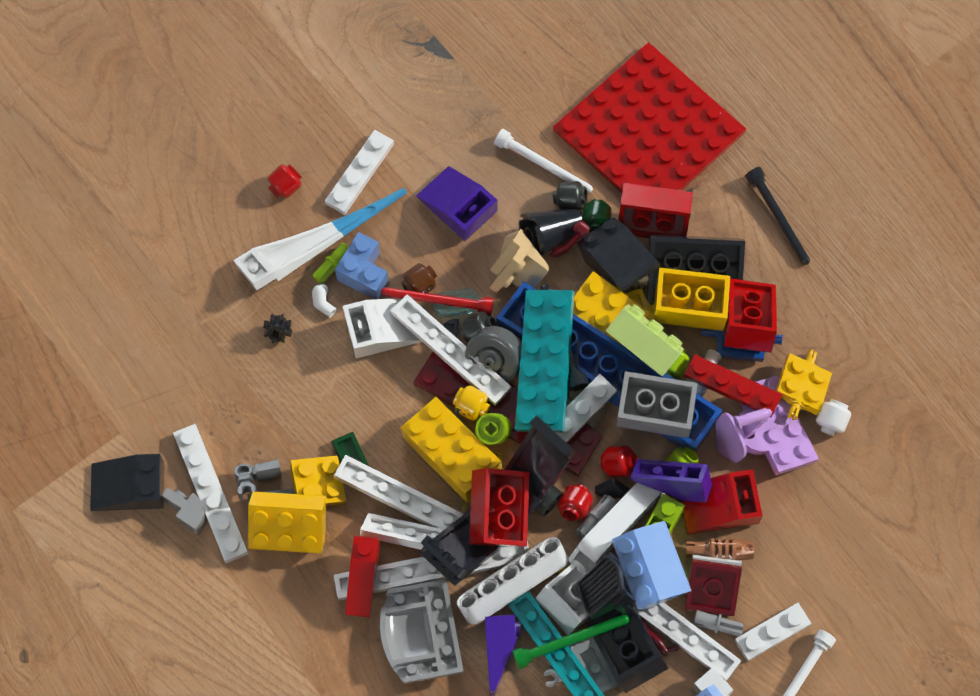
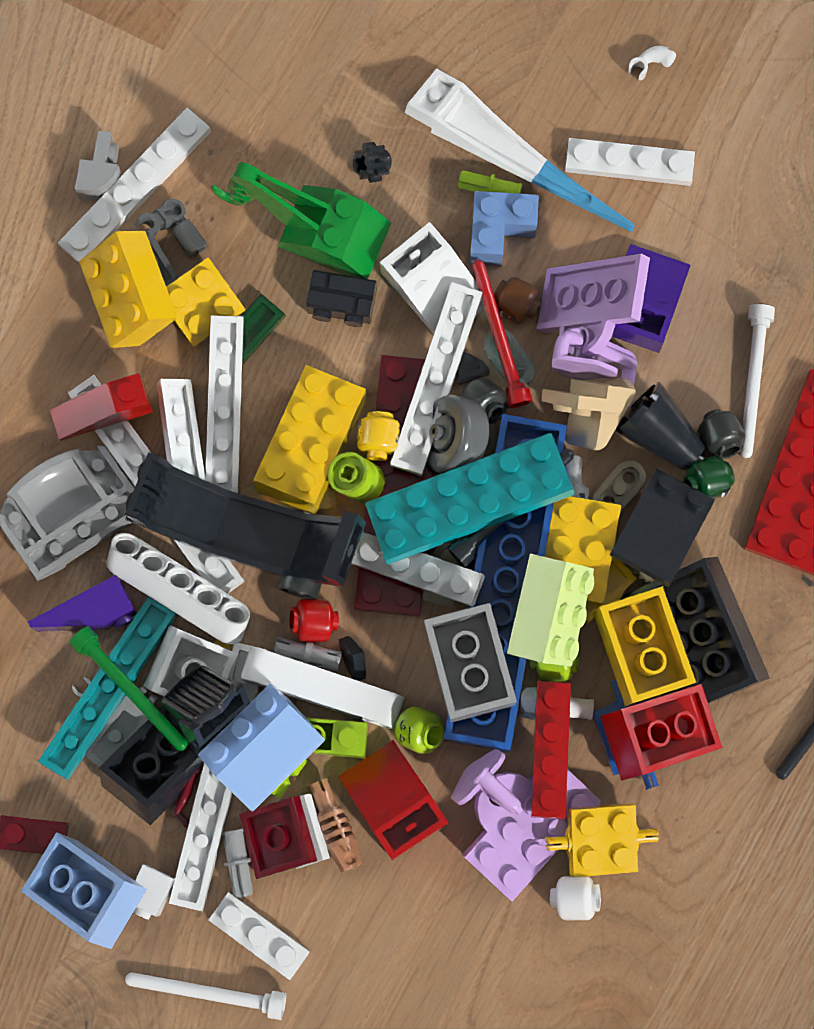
camera: 70 degrees right, 10 degrees up
(128, 483) = (103, 89): black slope -> none
(284, 181) = (570, 77): red head -> none
(295, 124) = (656, 54): none -> white arm
(303, 378) = (321, 226): none -> green slope
(319, 300) = (434, 195): white arm -> none
(361, 389) = (341, 298): none -> black brick
(453, 233) = (584, 307): none -> lavender plate
(499, 507) = (248, 529): red slope -> none
(577, 275) = (617, 489): none -> dark tan plate
(581, 230) = (674, 465): dark red piece -> none
(618, 461) = (389, 650): red head -> none
(655, 210) = (749, 547): red slope -> none
(676, 479) = (390, 727): dark purple slope -> none

